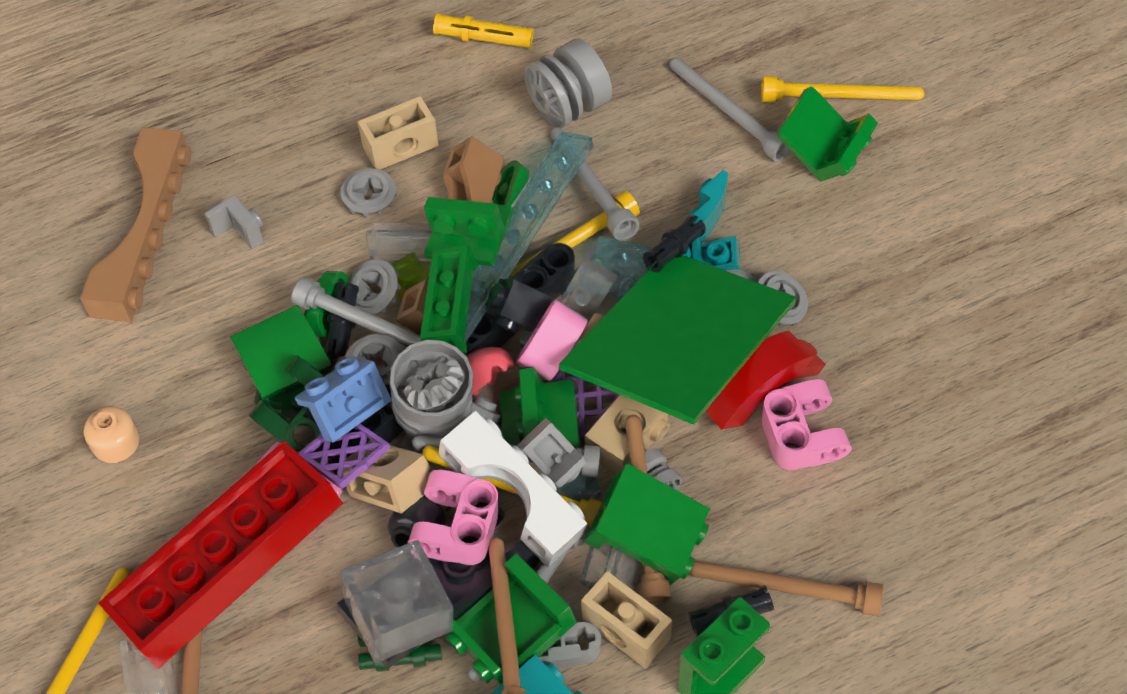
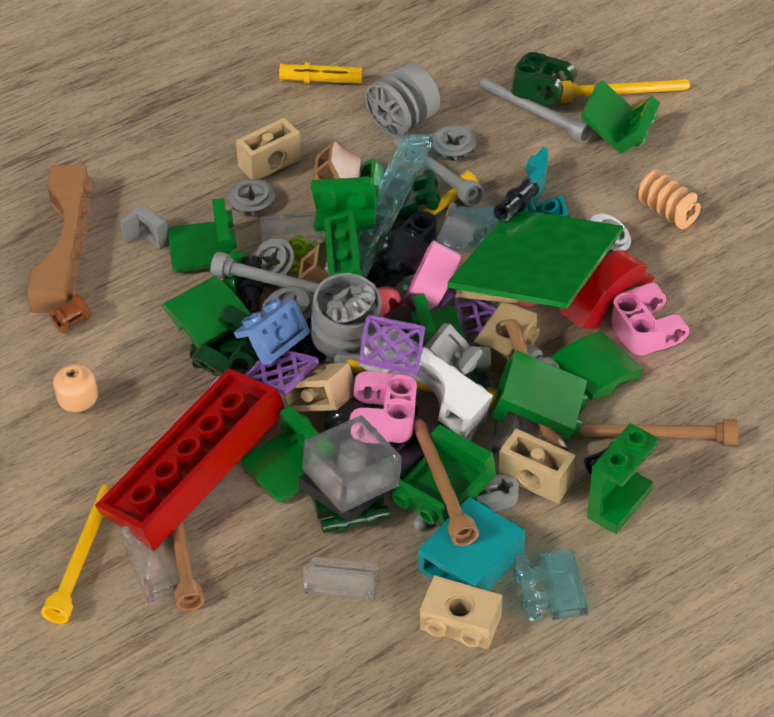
camera: 10 degrees left, 10 degrees down
(127, 328) = (70, 313): none -> dark orange bush
(298, 248) = (196, 244): none -> green bracket
(318, 562) = (280, 460): none -> green bracket
(464, 470) = (398, 326): none -> medium lavender window
(573, 221) = (422, 192): none -> dark green plate
(626, 133) = (456, 135): none -> light grey gear
(729, 480) = (598, 362): none -> green slope
(740, 63) = (537, 72): none -> dark green piece
(861, 260) = (668, 199): none -> light nougat piece

